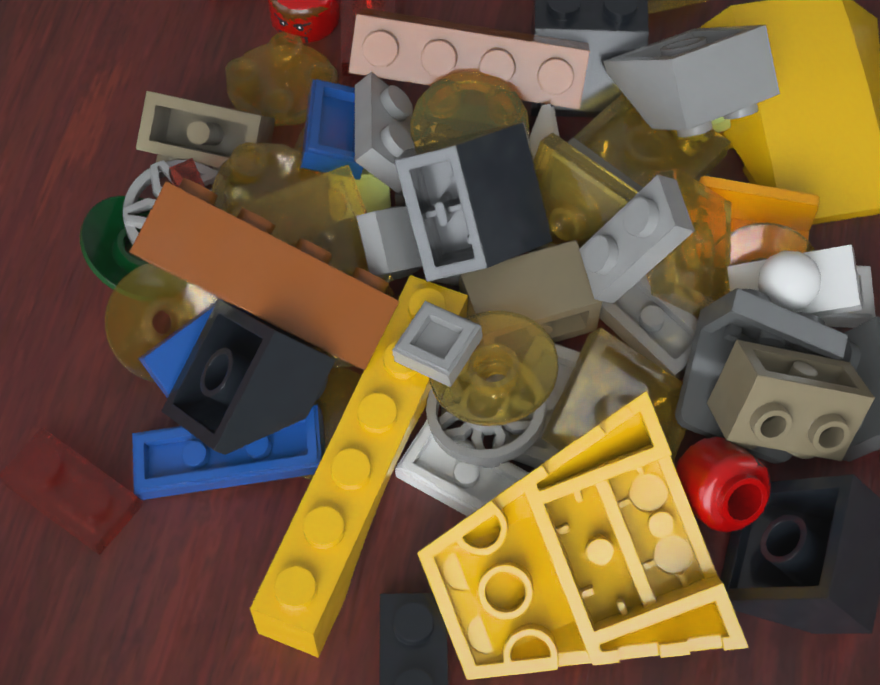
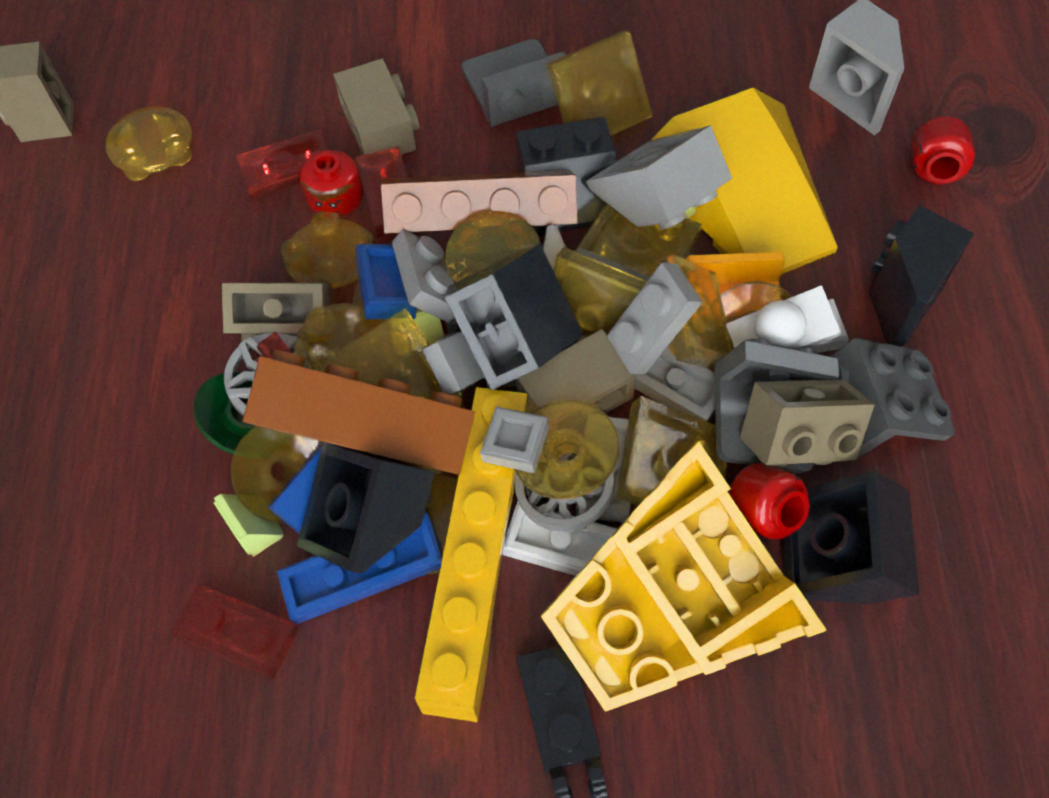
camera: 10 degrees left, 0 degrees up
(113, 382) = (250, 531): none -> yellowish green slope

